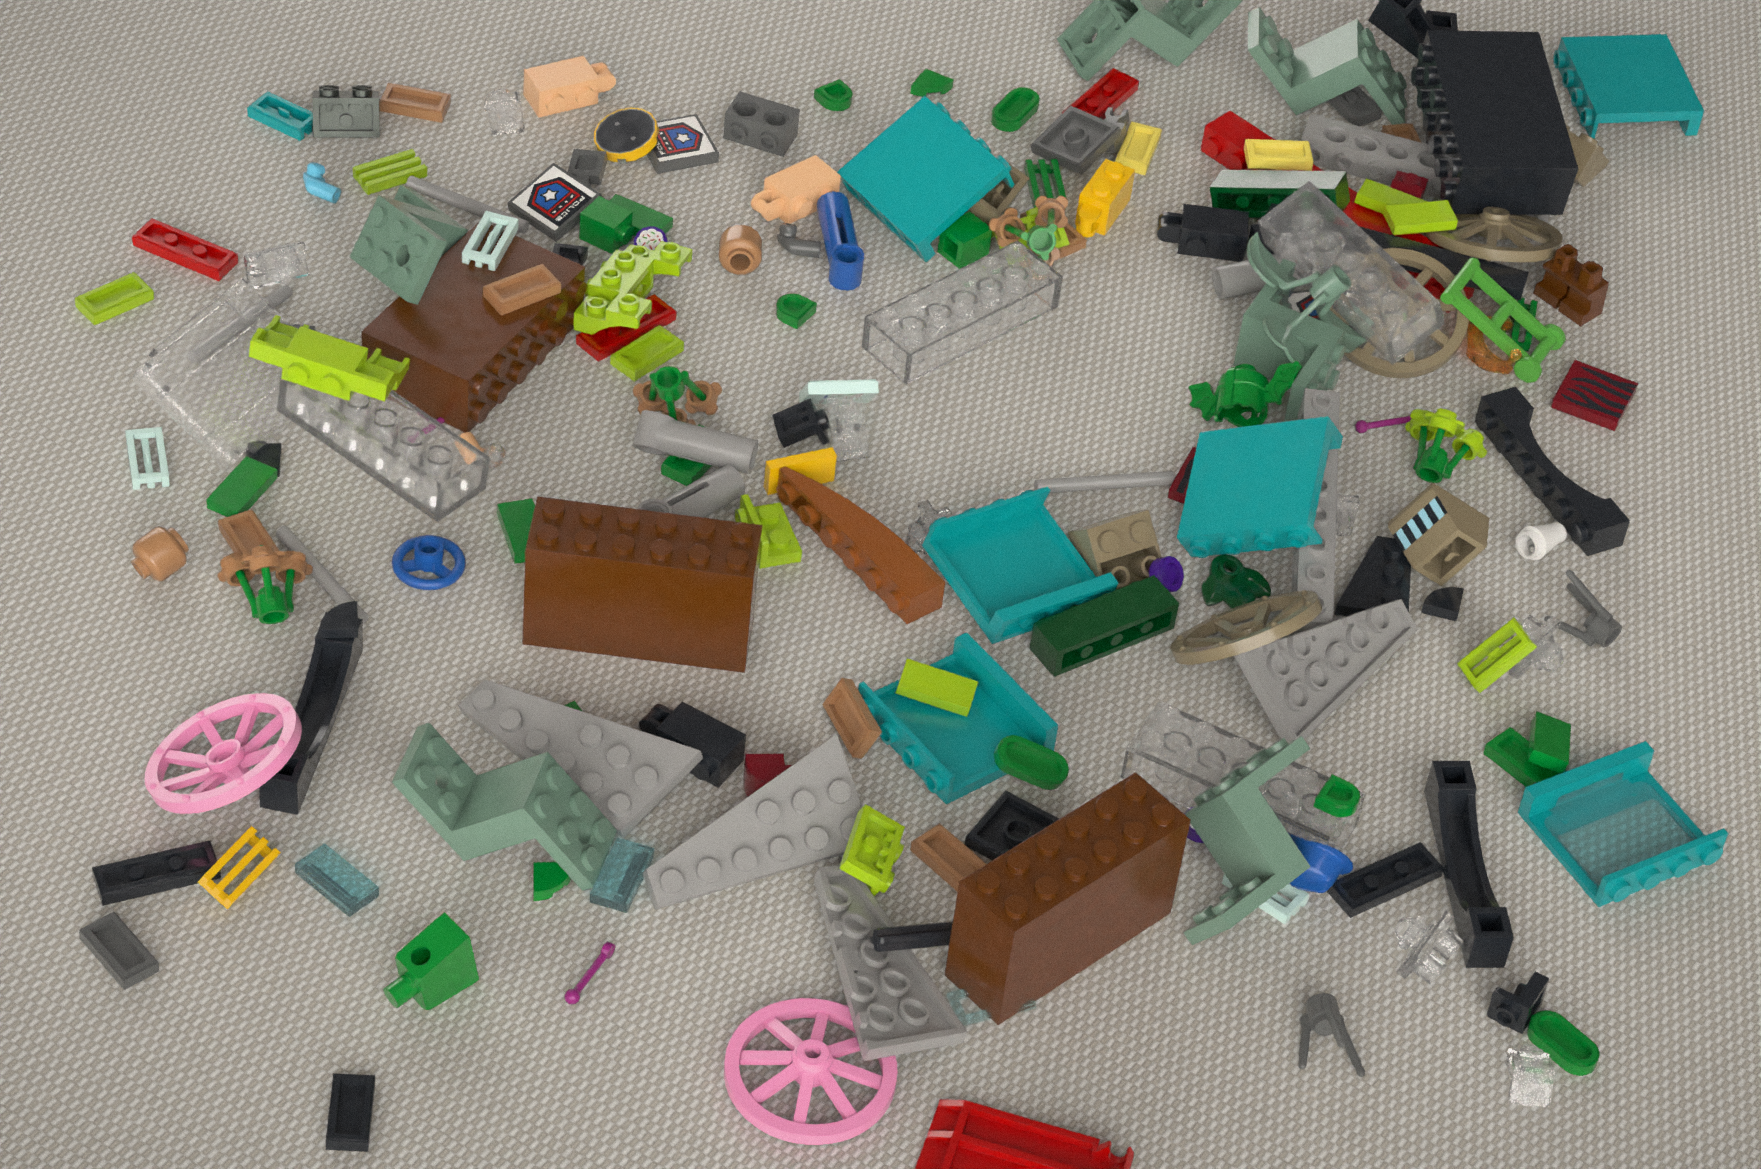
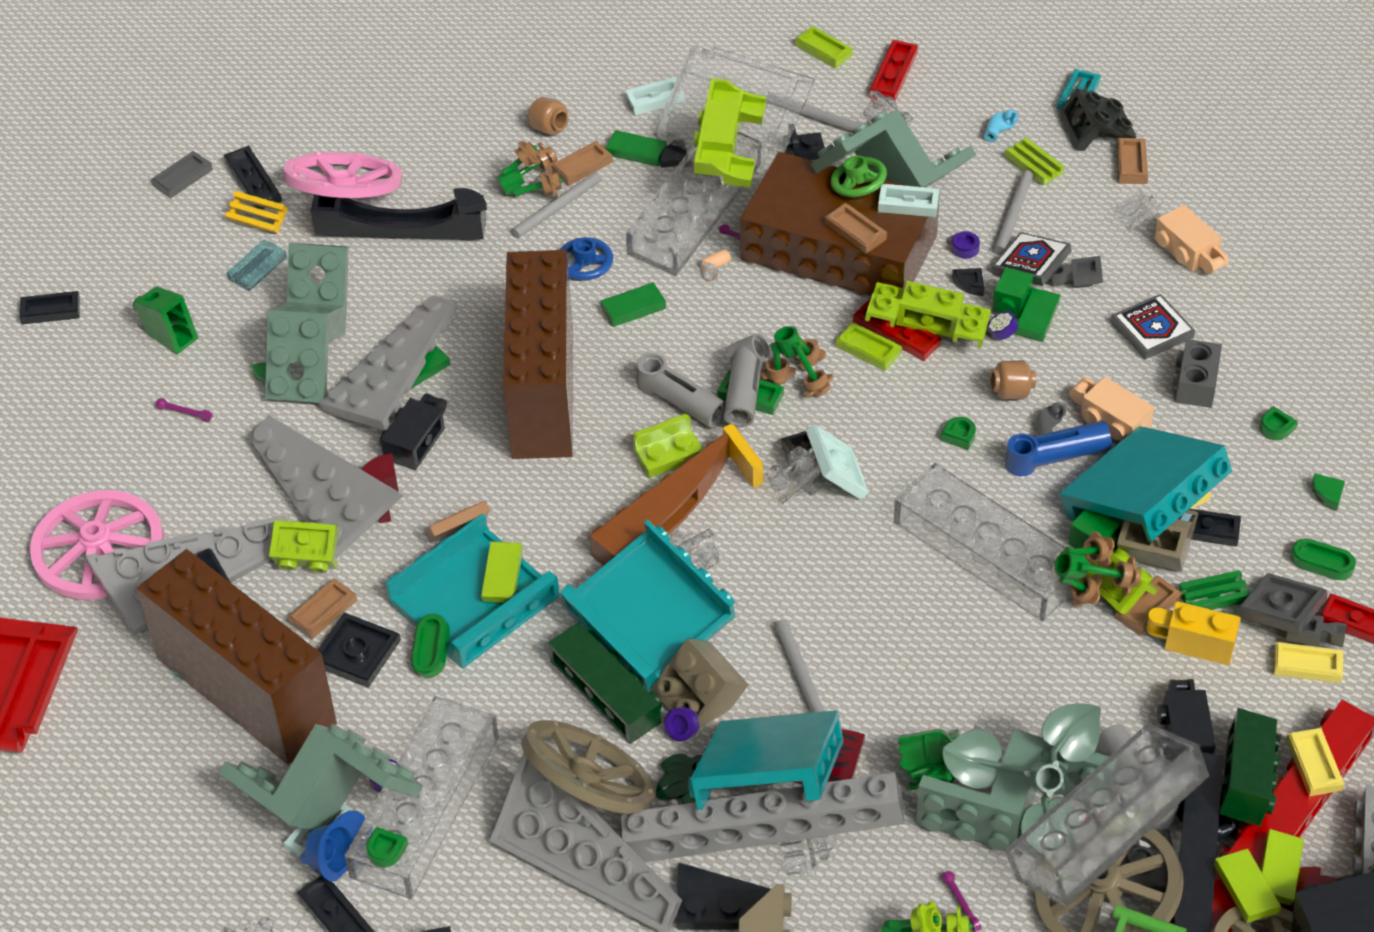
camera: 90 degrees right, 5 degrees up
(446, 269) = (857, 173): none -> bright green piece
(621, 875) = (289, 412): clear light blue tile -> none
(626, 134) = (1140, 287): black tile -> none
(1325, 1019) = (168, 874): dark grey plant -> none

